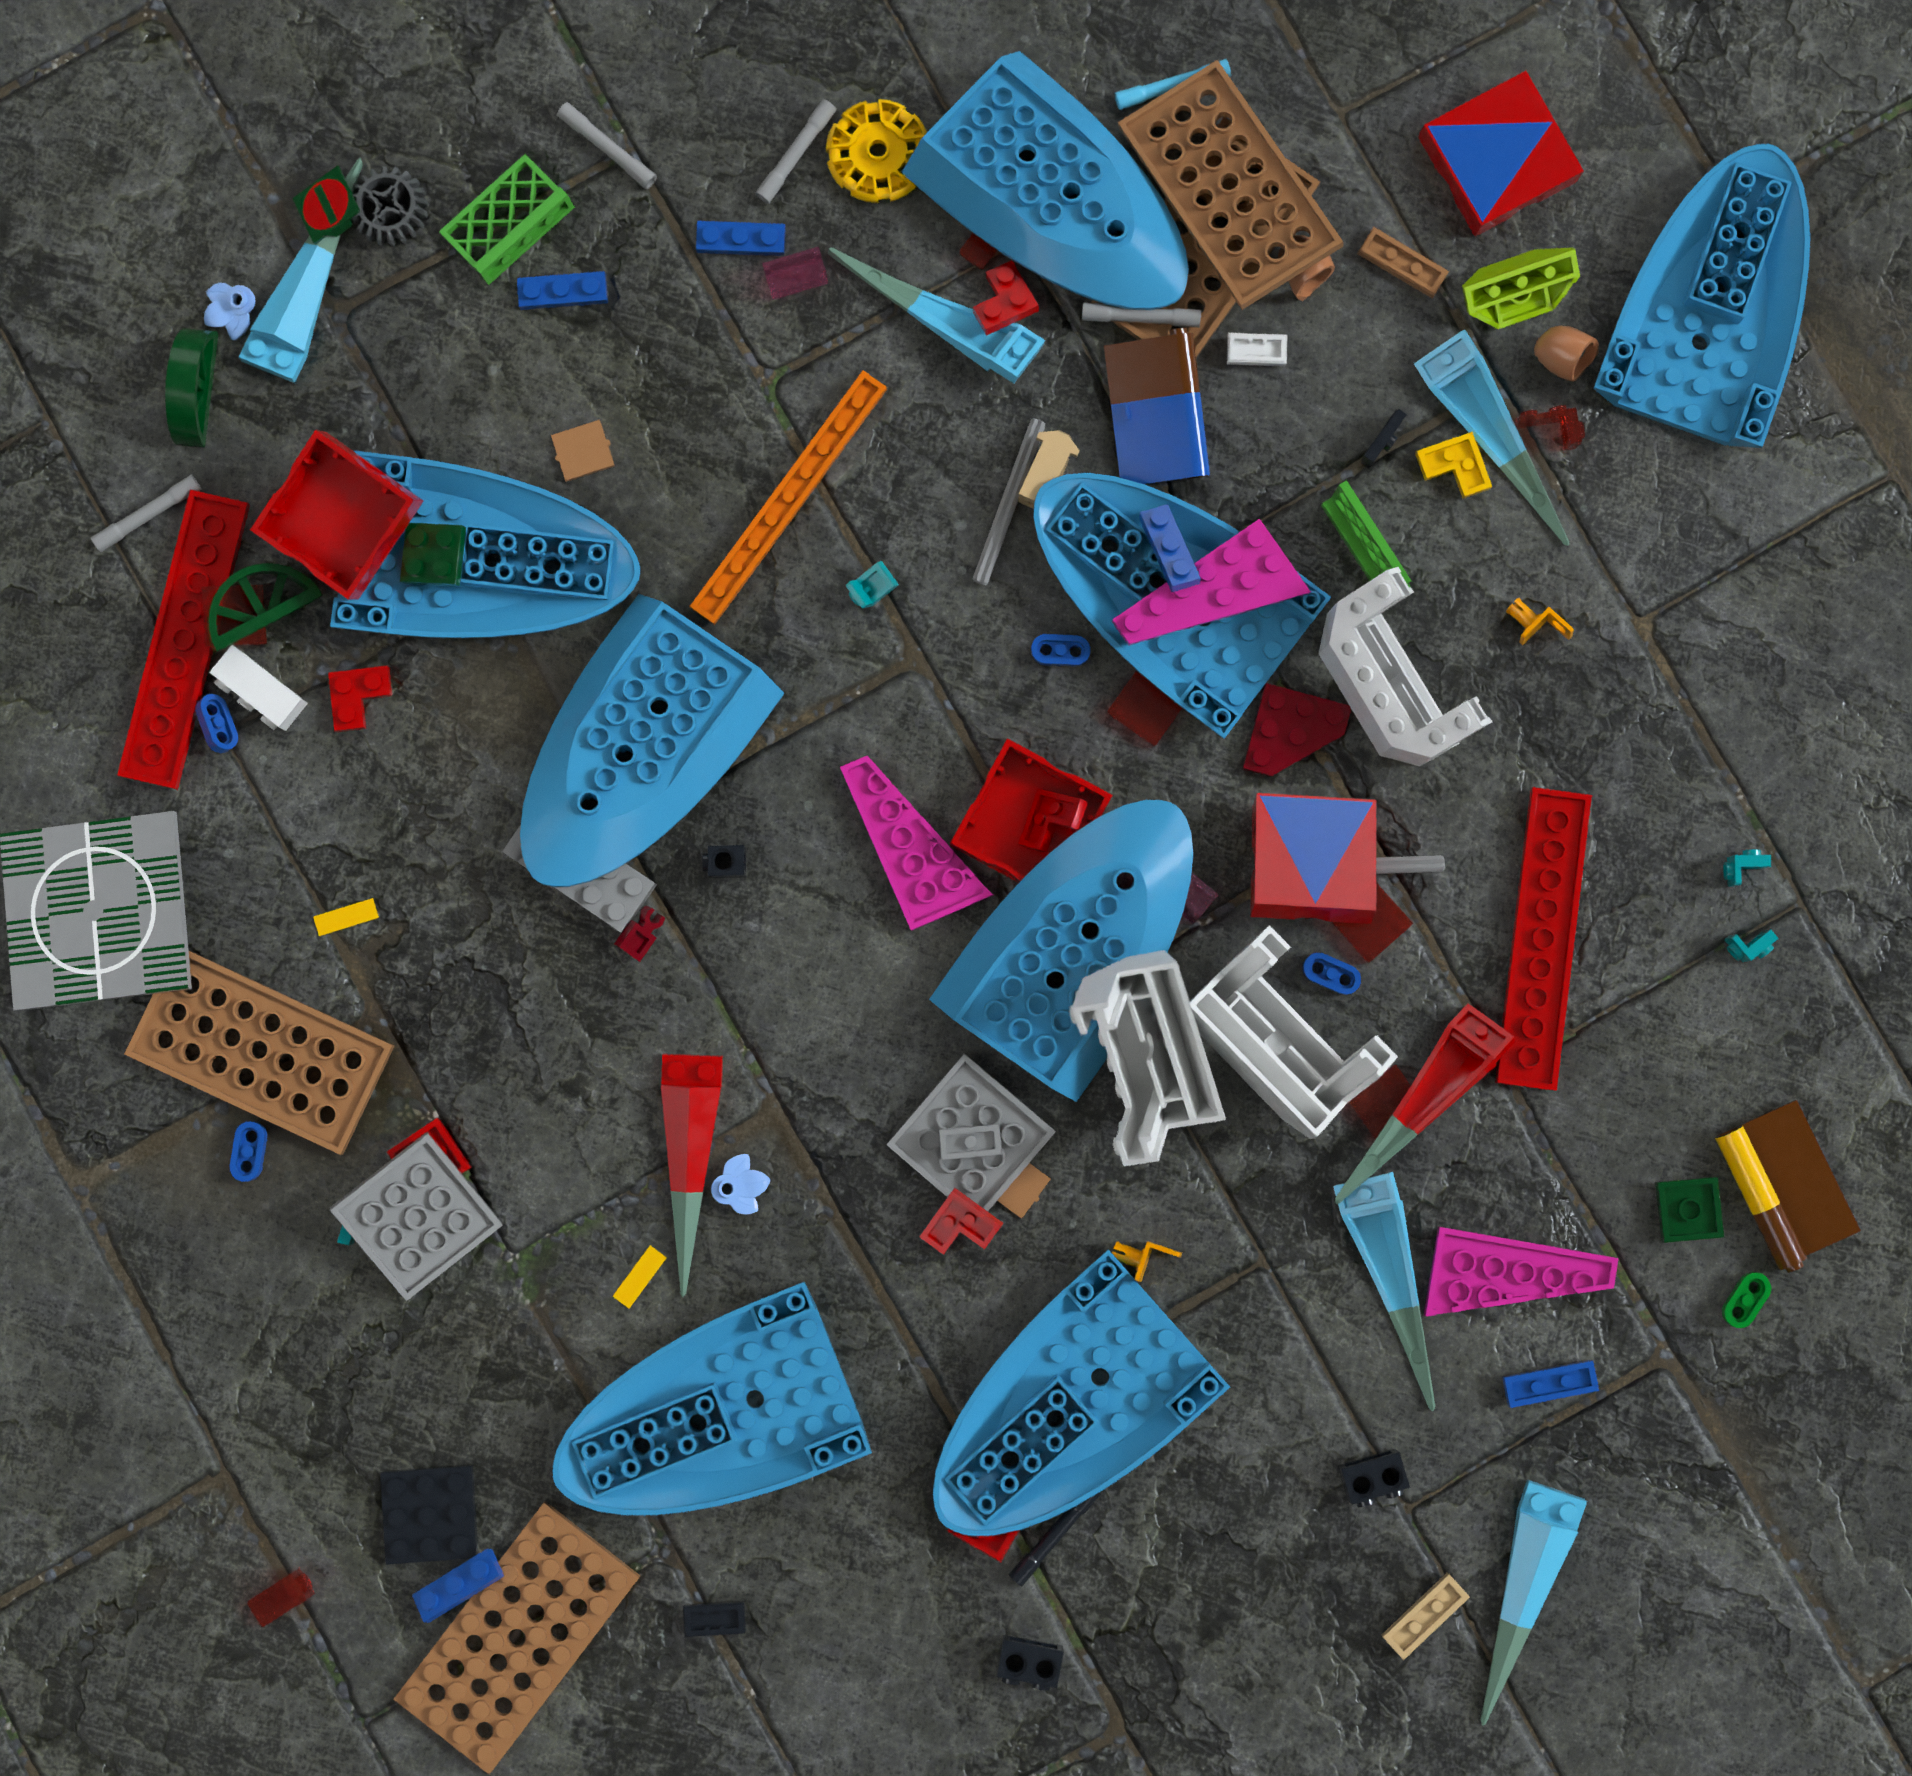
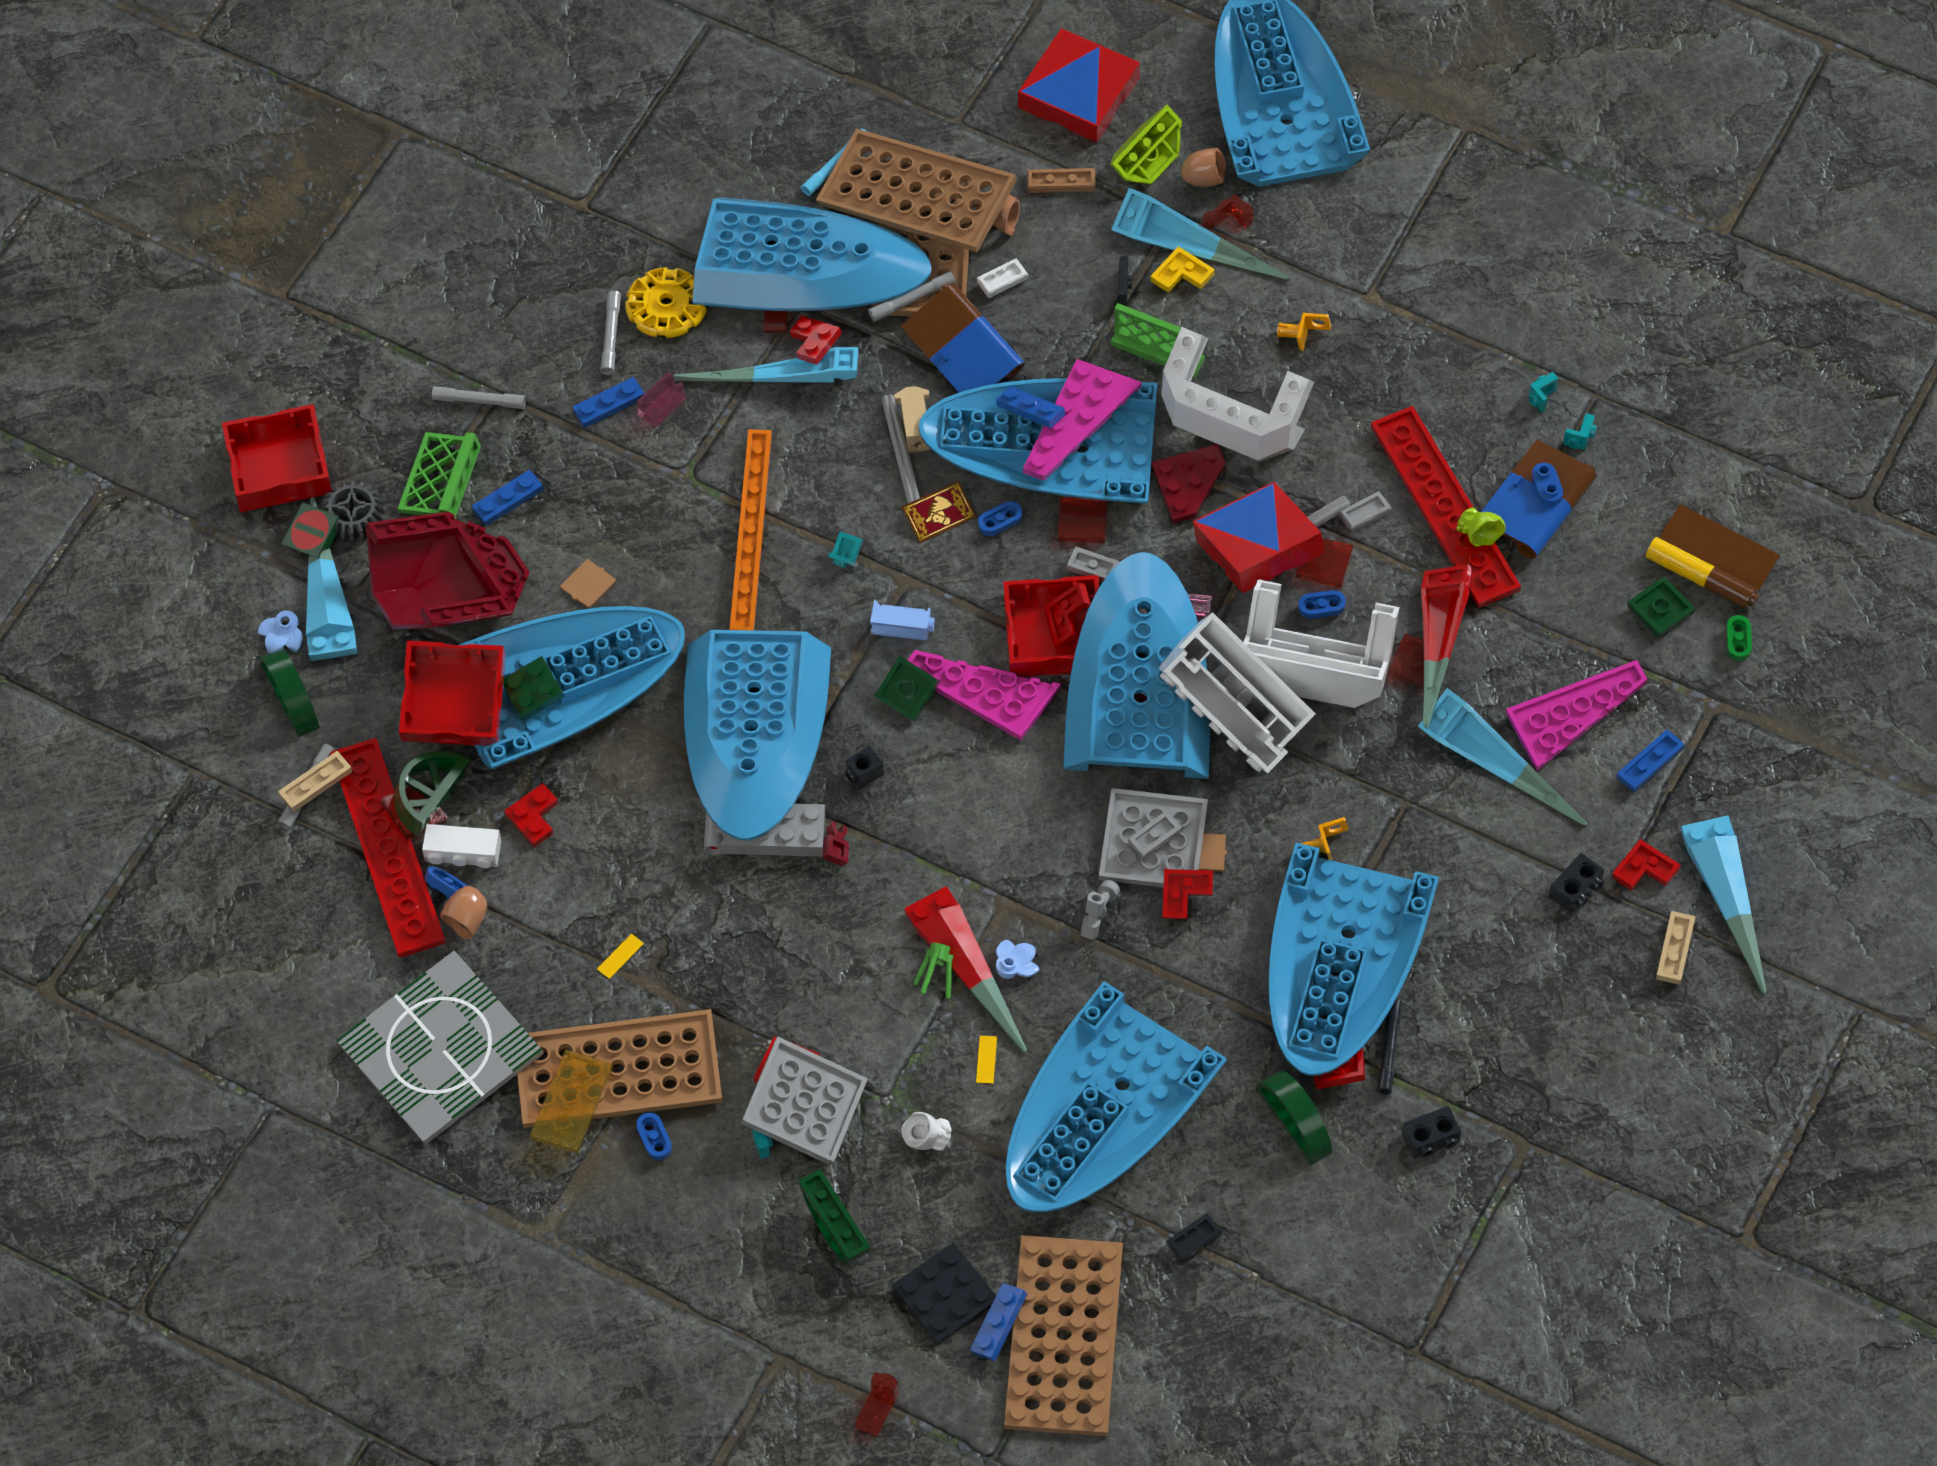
camera: 30 degrees left, 25 degrees down
(148, 519) = (315, 781): none -> tan plate
(185, 1062) = (571, 1101): none -> clear yellow tile
(209, 773) = (465, 908): none -> nougat piece
(345, 90) = (276, 458): none -> red tile
(357, 1380) = (833, 1218): none -> dark green window
(429, 353) = (441, 571): none -> dark red windscreen
(520, 1327) = (925, 1132): none -> white hair
(658, 1137) = (936, 956): none -> bright green plant
(828, 797) = (907, 688): none -> dark green plate
(853, 1190) = (1096, 908): none -> light grey bar
(876, 710) = (901, 622): none -> light blue window
(903, 1549) = (1296, 1114): none -> dark green window
(1002, 599) = (939, 511): none -> sticker
(1121, 770) = (1090, 563): none -> light grey plate
(1454, 888) = (1365, 512): none -> light grey tile
(1461, 1494) = (1645, 860): none -> red plate
(1558, 999) = (1481, 527): none -> lime hair
(1648, 994) = (1519, 505): none -> door
(1667, 991) = (1547, 482): none -> blue plate

